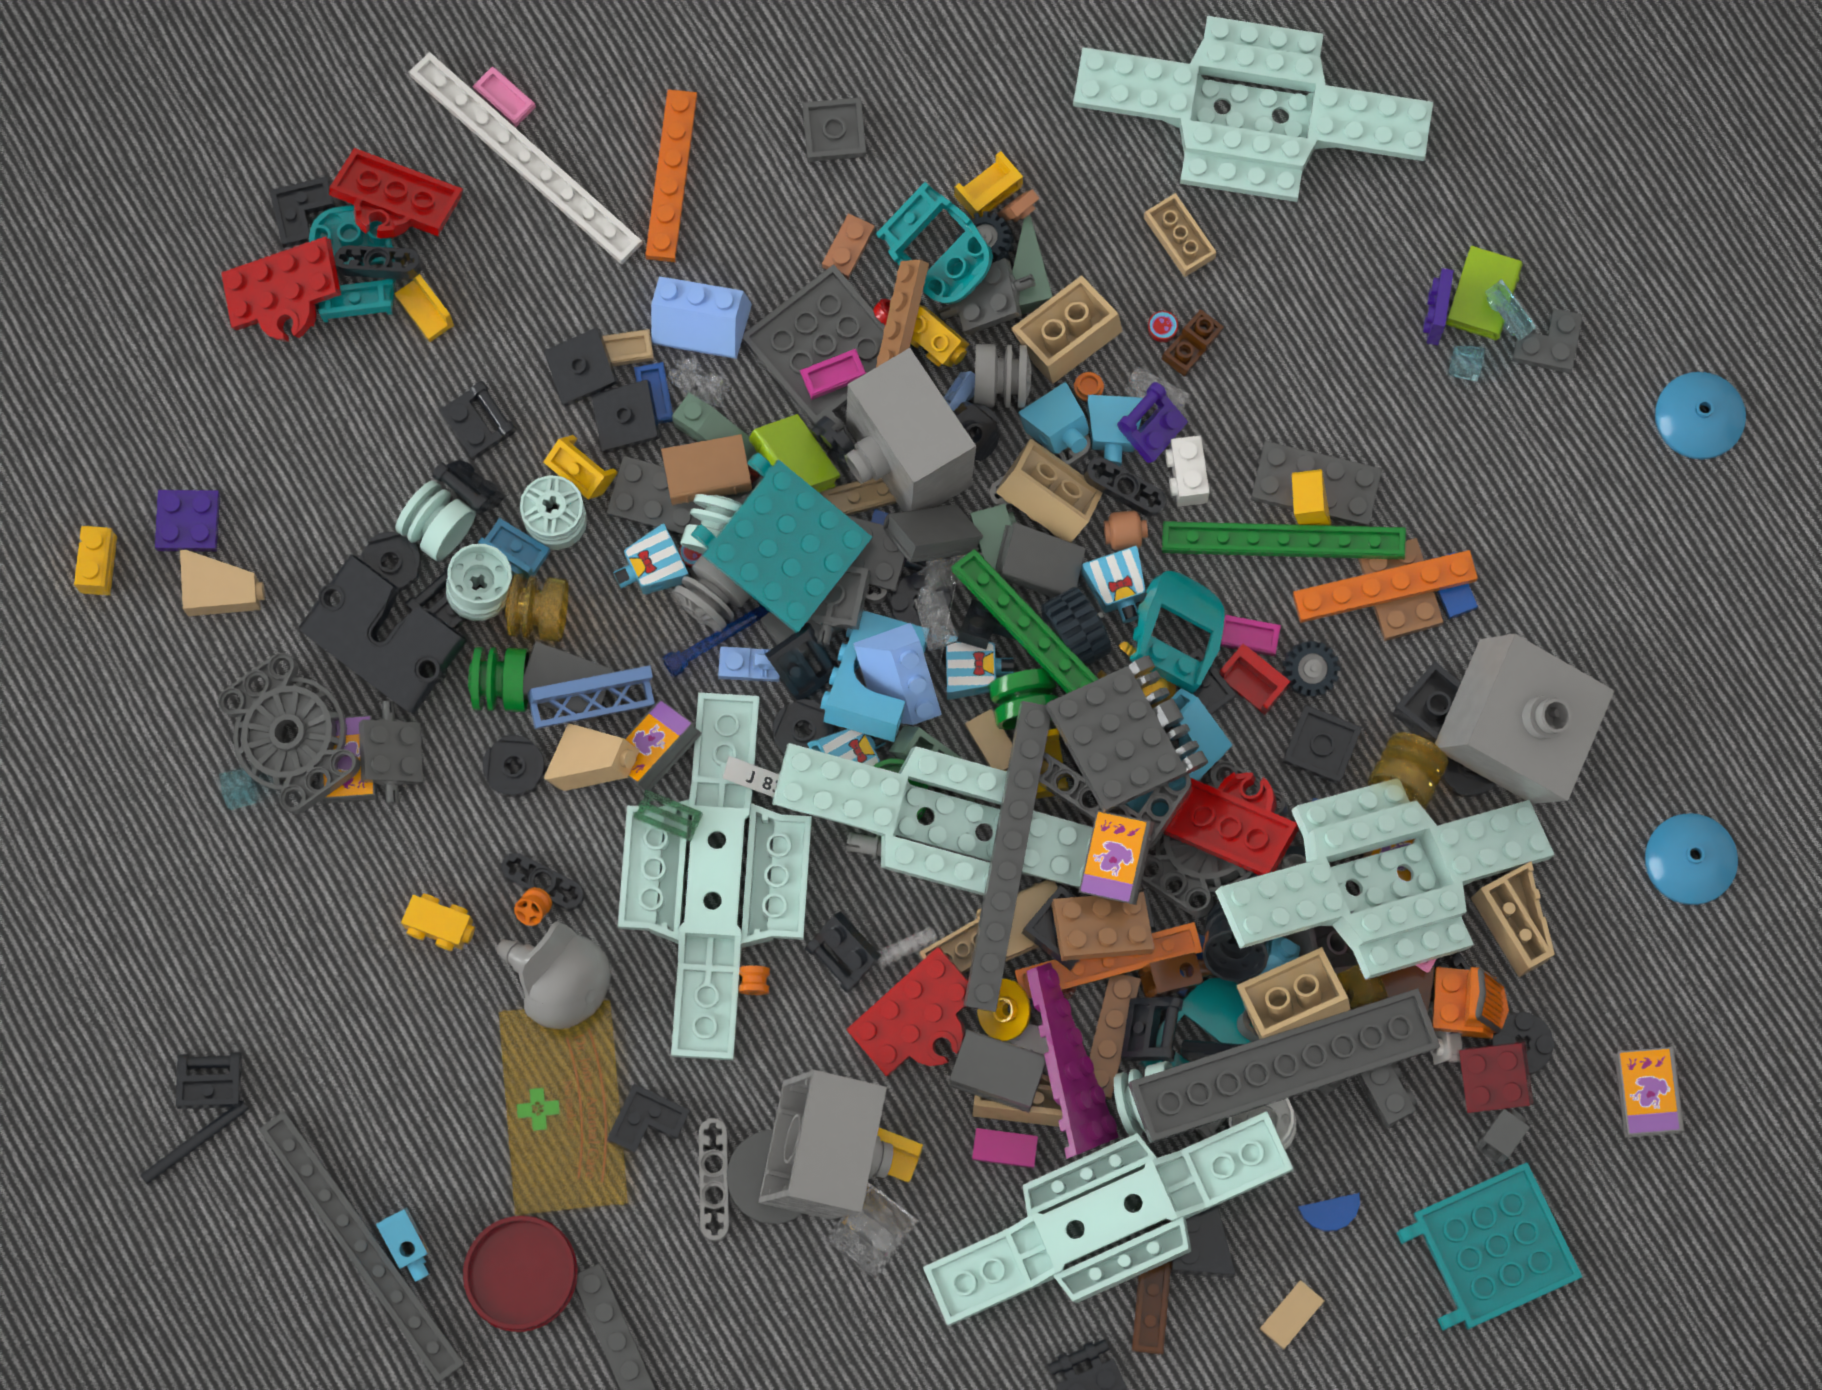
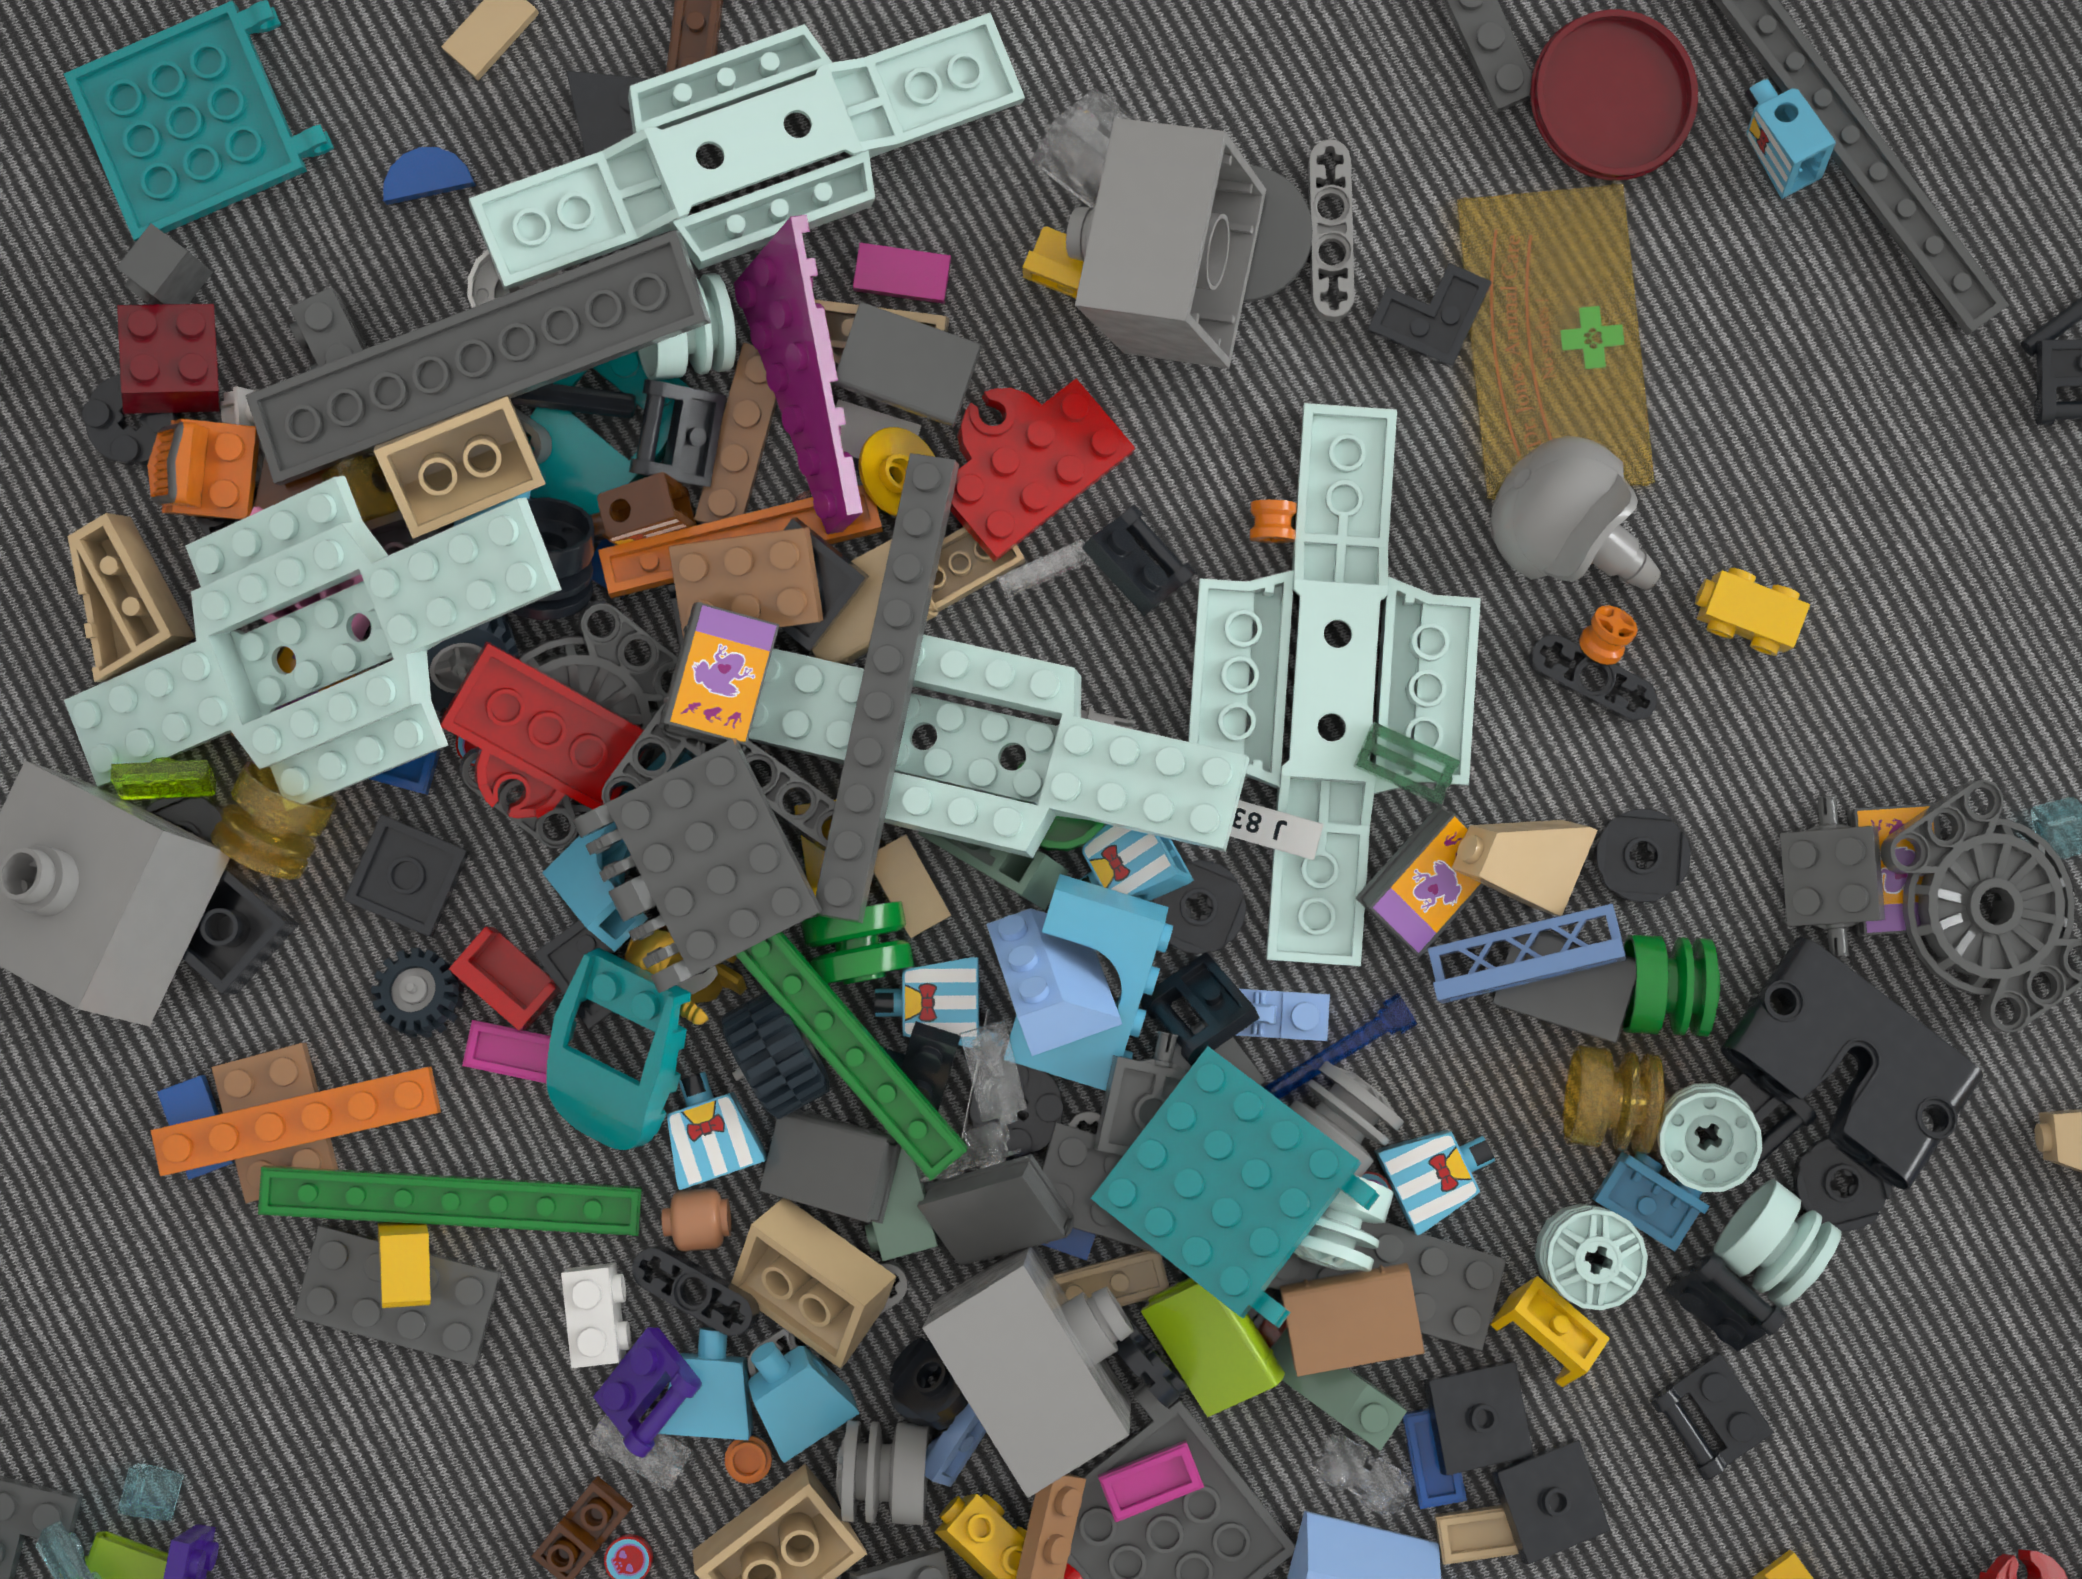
camera: 175 degrees left, 10 degrees up
(1482, 800) = (163, 779): none -> clear neon green plate

